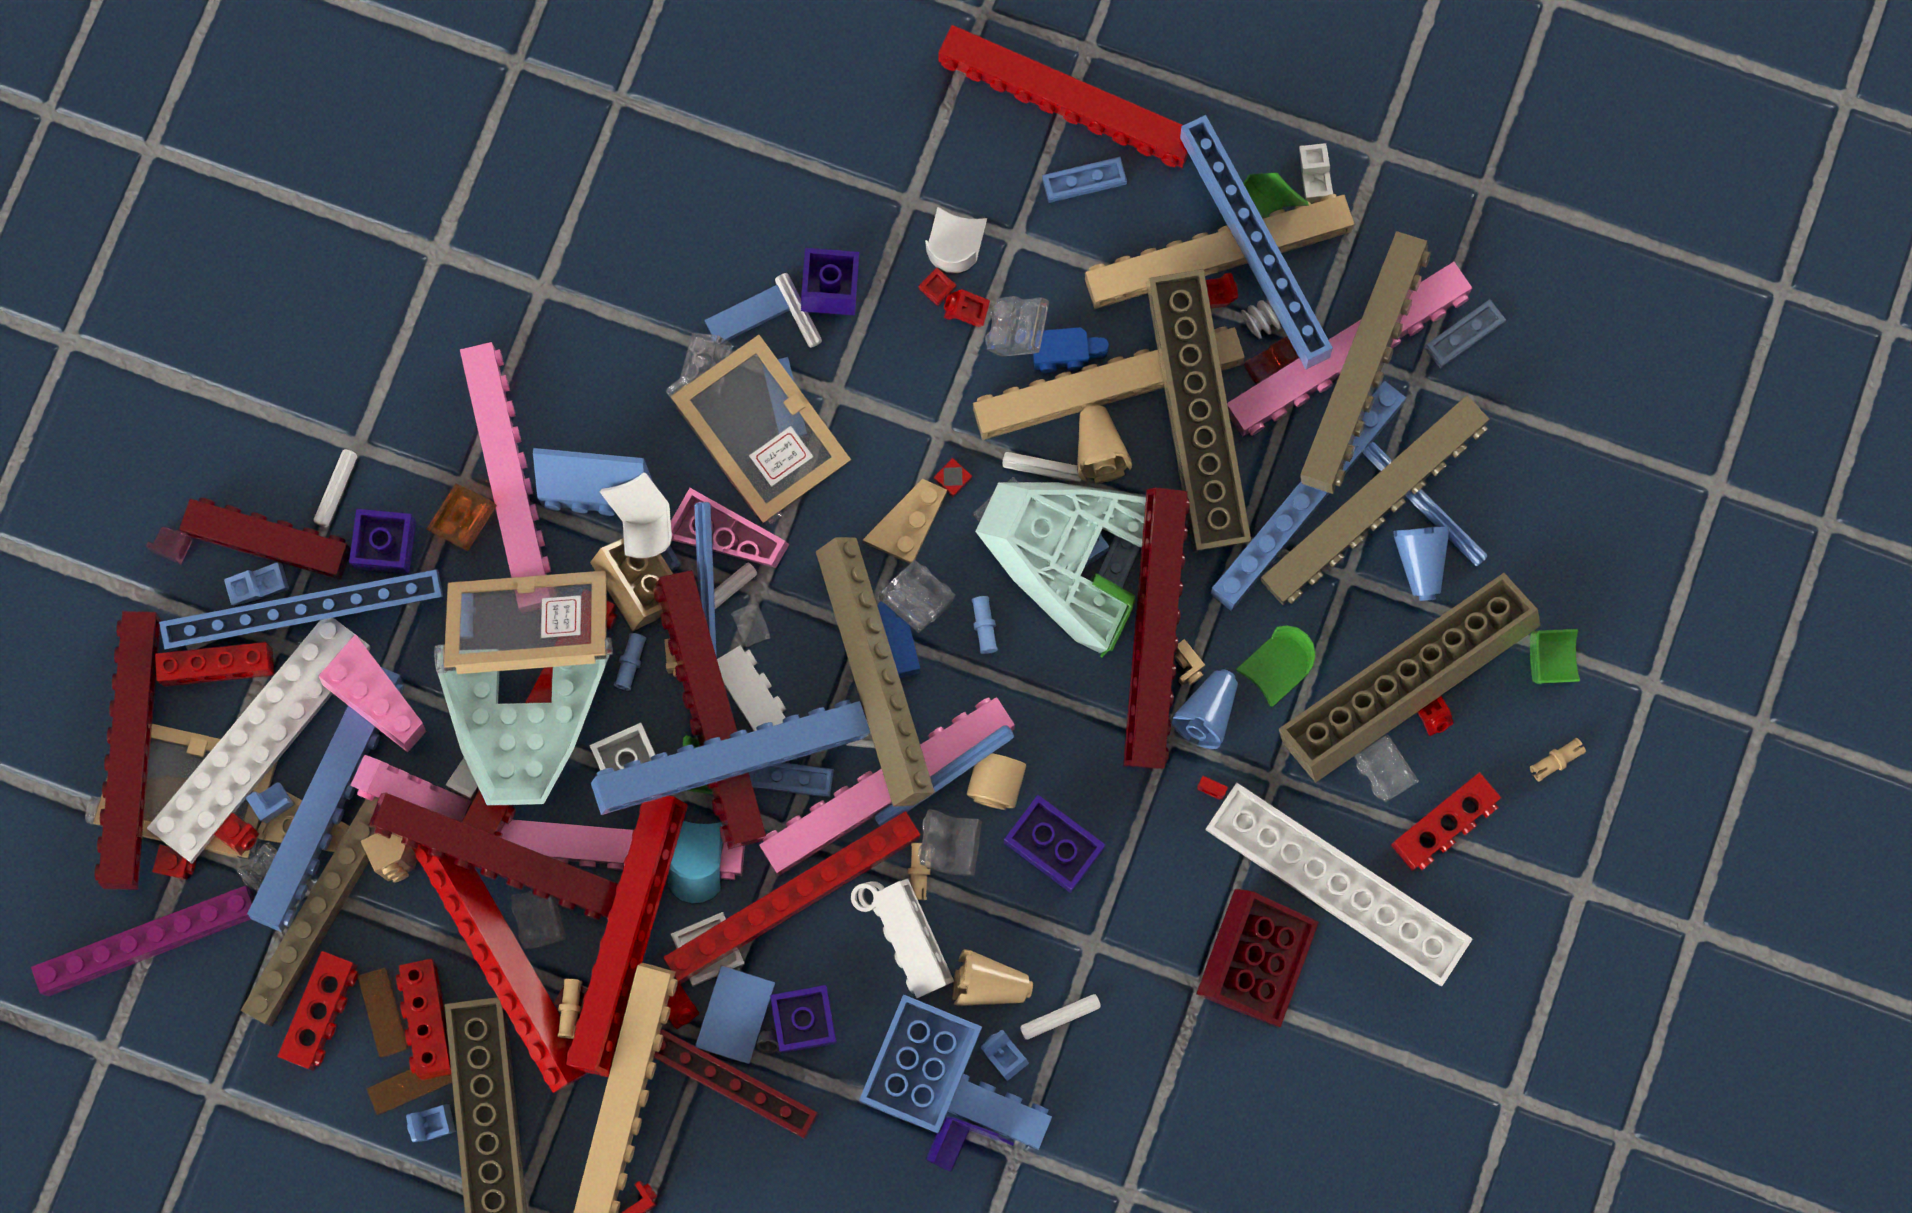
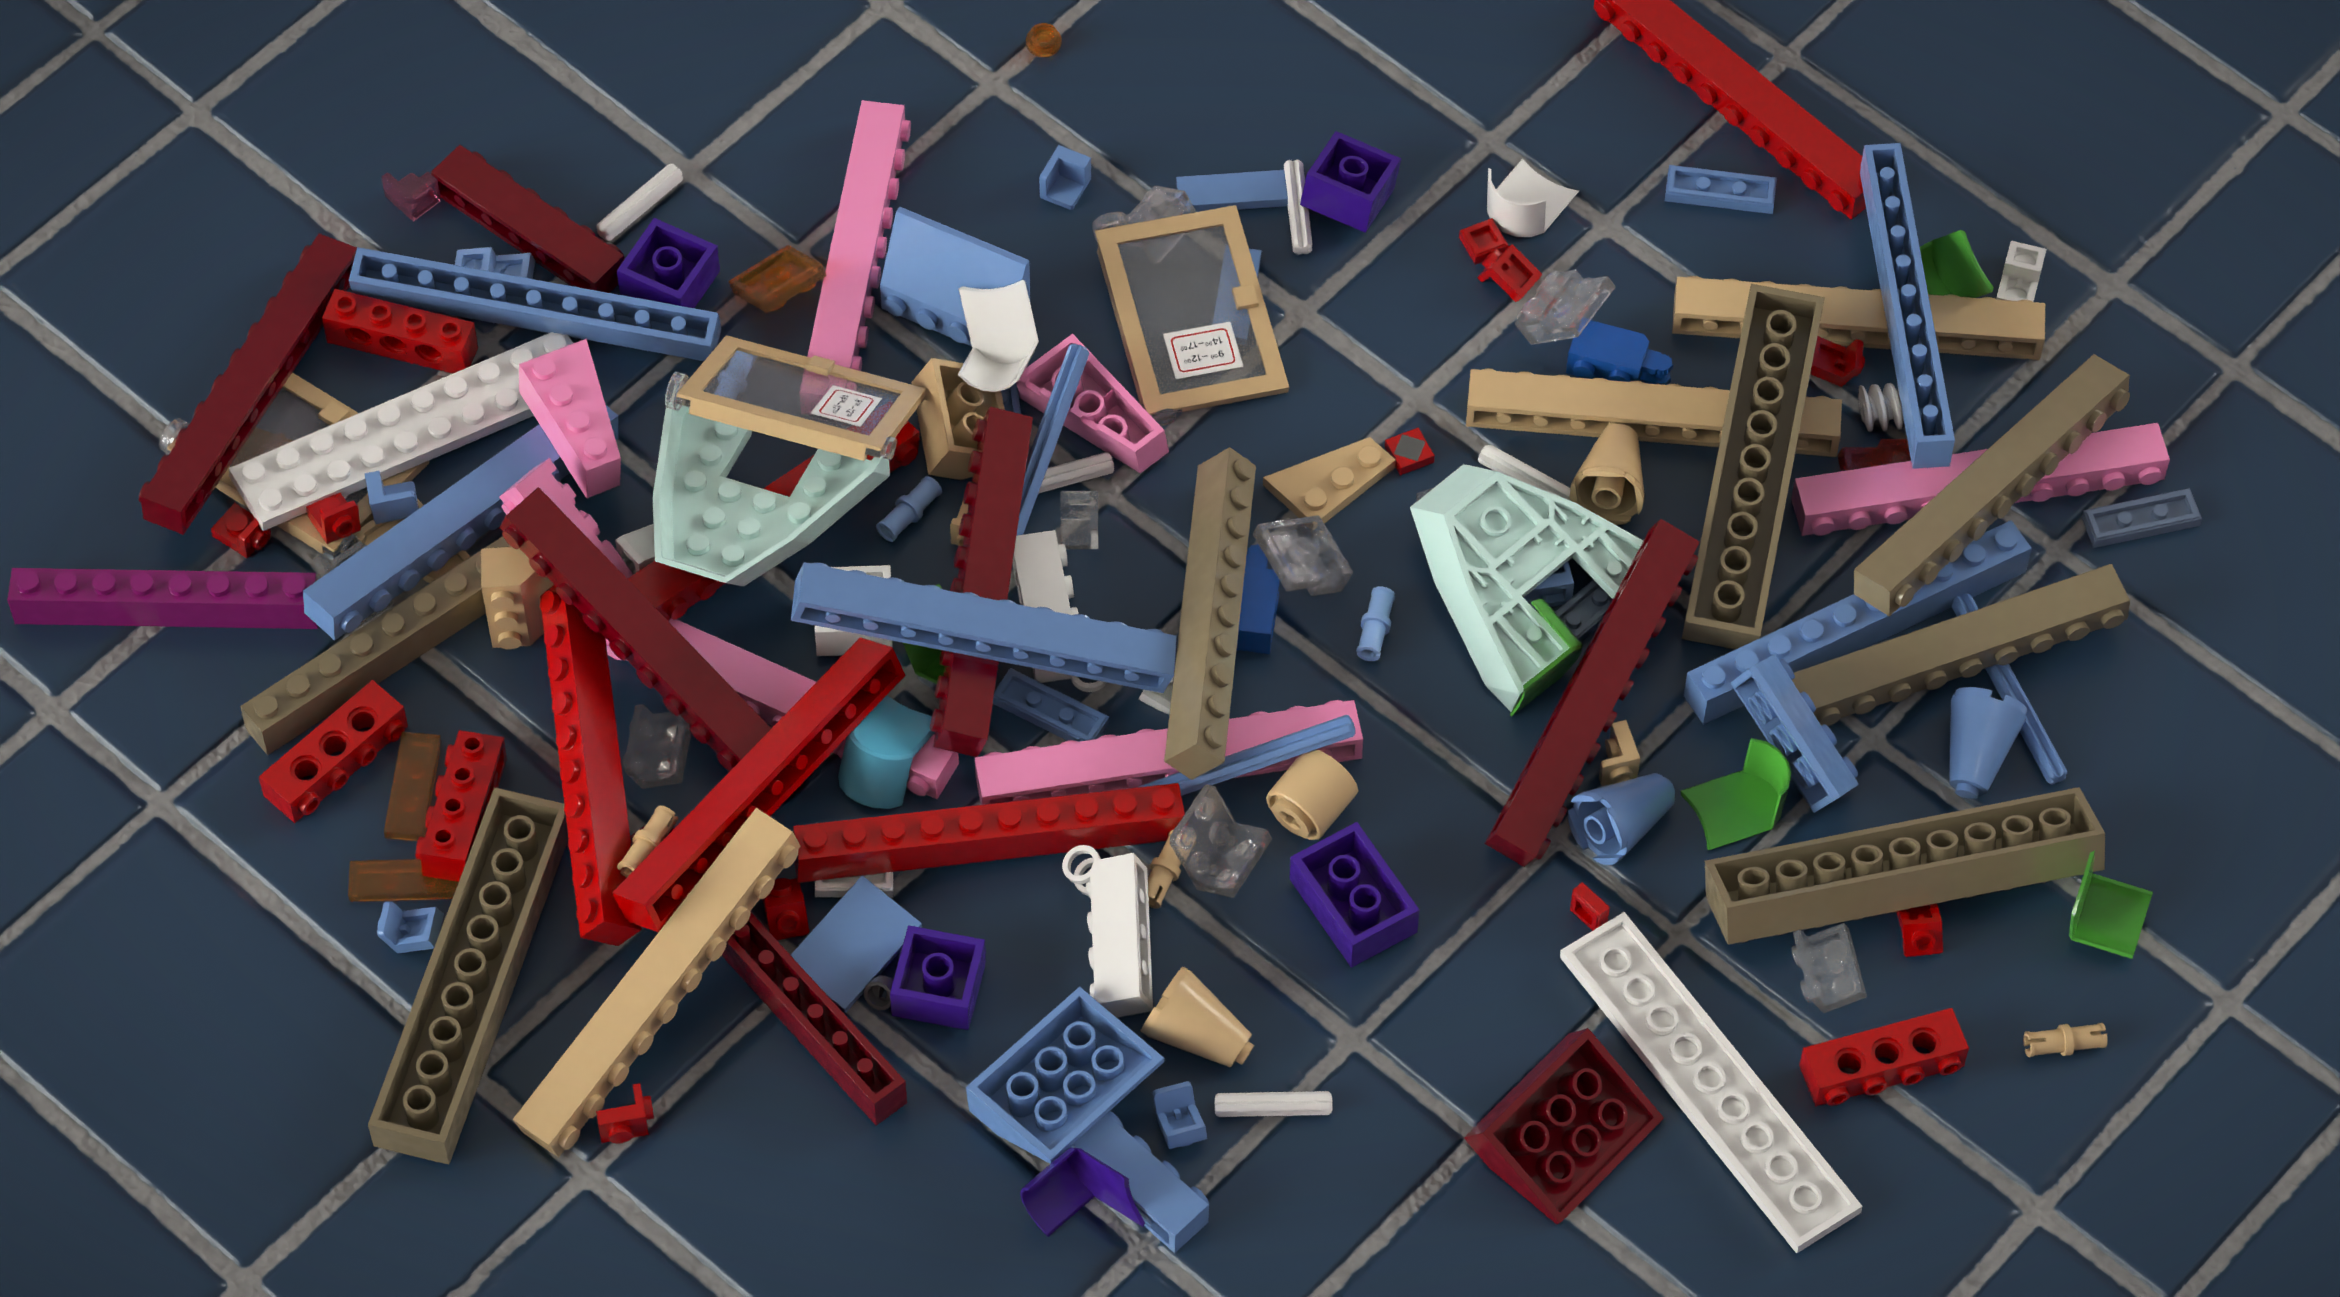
camera: 20 degrees right, 20 degrees down
(564, 234) = (1043, 33): none -> clear orange plate
(627, 352) = (1065, 177): none -> medium blue panel
(1306, 610) = (1791, 726): none -> medium blue slope

